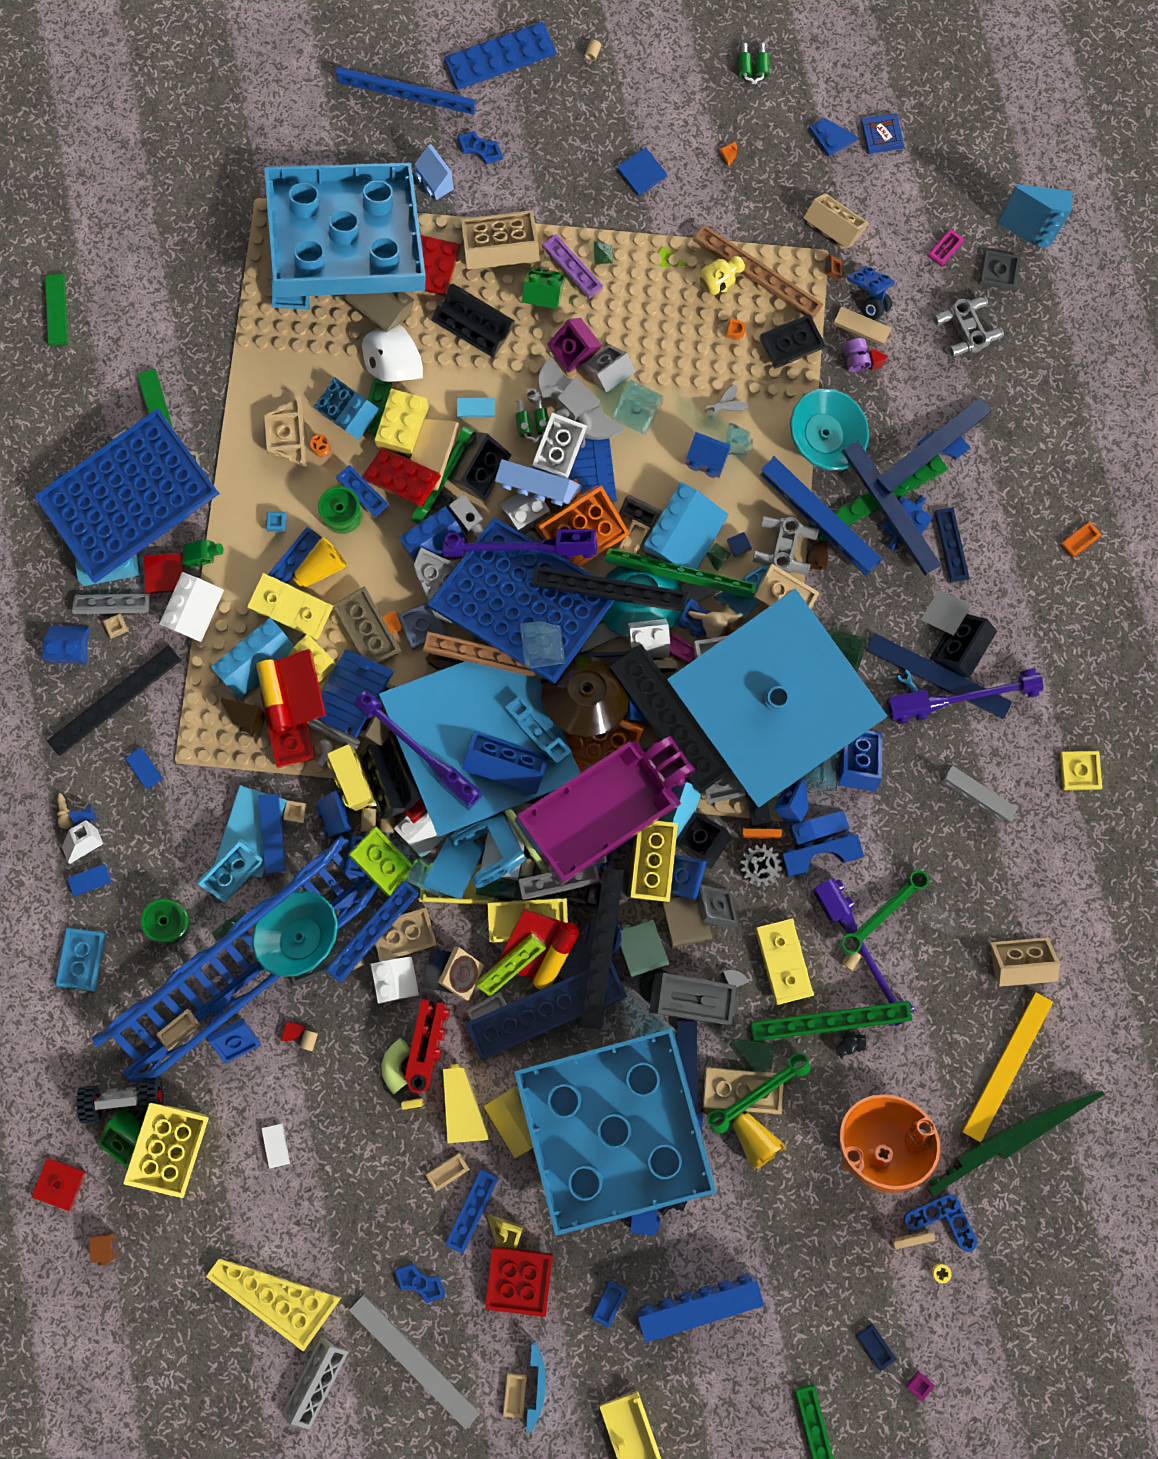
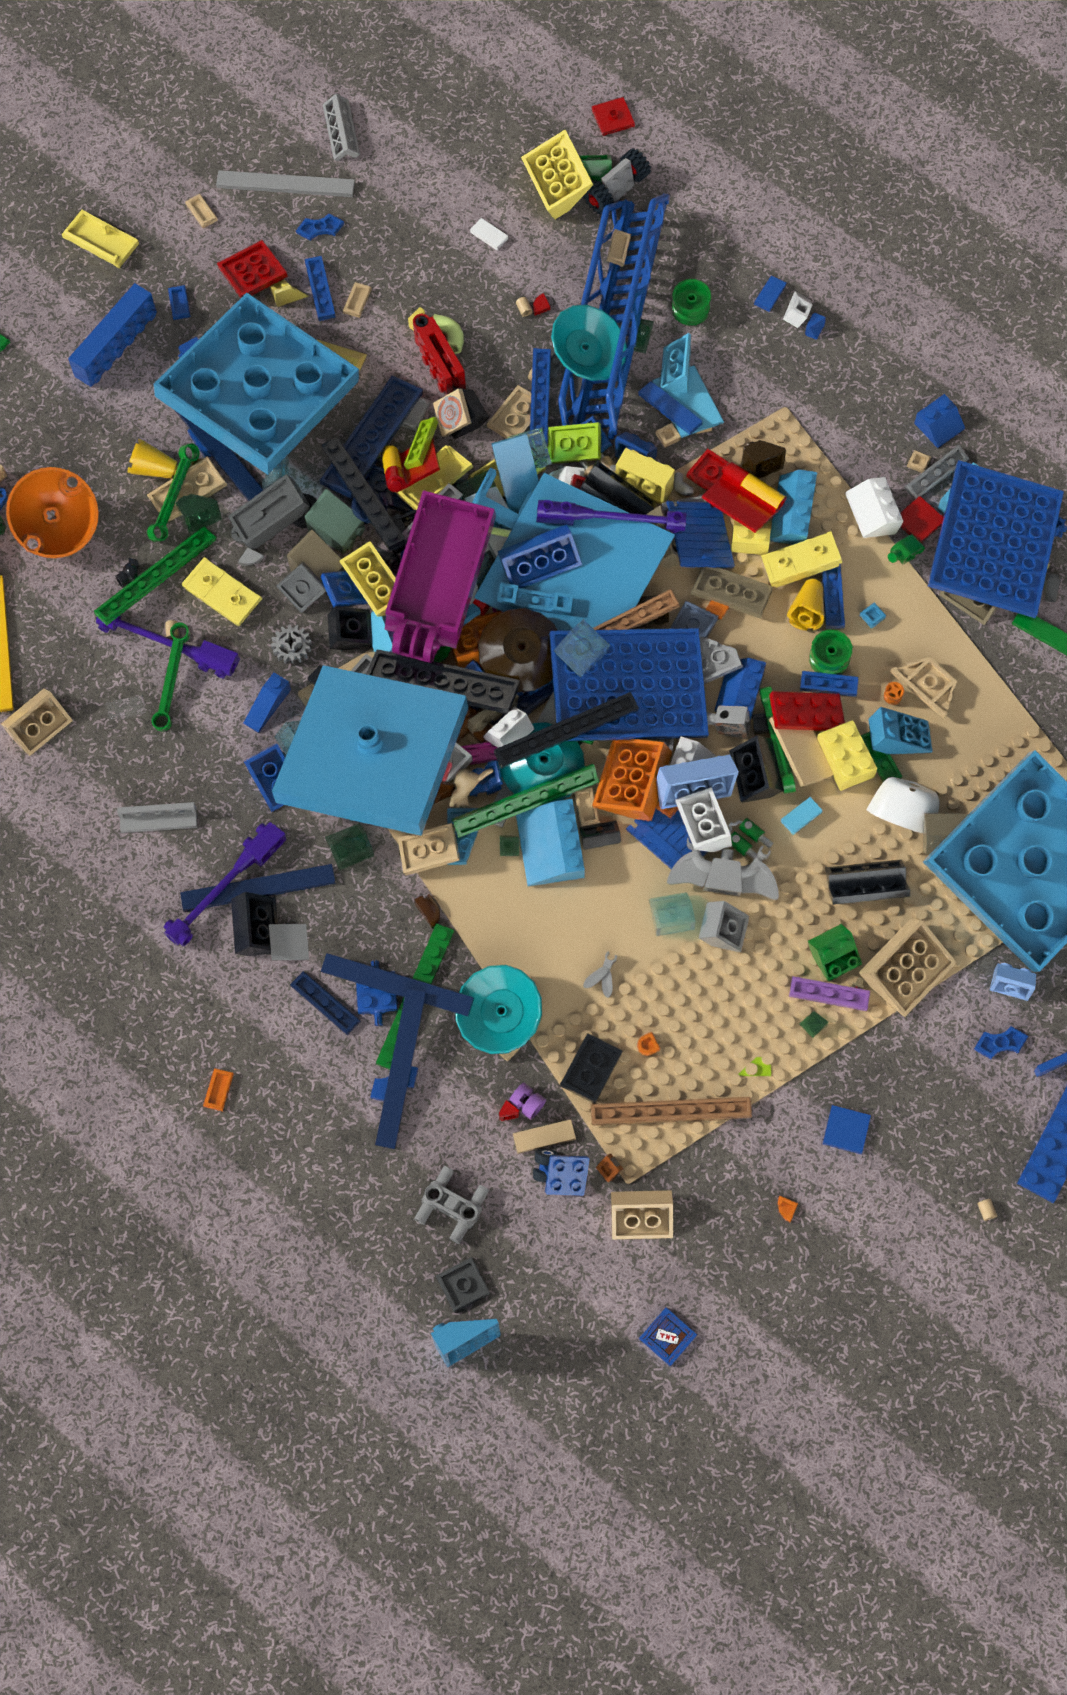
camera: 145 degrees right, 10 degrees down
(64, 820) = (829, 319): tan bar -> none
(80, 959) = (728, 245): dark azure tile -> none
(102, 1248) = (548, 101): dark orange brick -> none
(113, 700) = (869, 414): black plate -> none
(144, 768) = (803, 387): blue tile -> none
(233, 1040) = (574, 266): blue tile -> none
(284, 1305) = (397, 154): light yellow wing -> none
(394, 979) = (497, 381): white slope -> none
(439, 263) = (941, 907): red plate -> none
(462, 1111) = (380, 340): light yellow slope -> none
(534, 1411) = (200, 236): dark azure slope -> none
(566, 543) = (636, 739): dark purple bar -> none
(574, 344) = (767, 925): magenta slope -> none
(707, 455) = (581, 912): blue slope -> none
(720, 274) = (698, 1075): light yellow piece -> none
(739, 440) = (566, 942): clear light blue slope -> none
(739, 544) = (499, 867): dark blue tile -> none
(745, 66) = (830, 1319): green piece -> none
(761, 833) = (308, 666): orange tile -> none
(786, 544) = (460, 891): light grey piece -> none
(793, 803) = (297, 699): blue slope -> none
(820, 516) = (450, 933): blue tile -> none
(831, 136) = (711, 1296): blue wing -> none
(846, 849) = (235, 702): blue arch -> none
(908, 682) = (278, 864): dark azure piece -> none
(937, 258) = (518, 1273): dark pink tile -> none
(1080, 770) = (88, 898): light yellow tile -> none

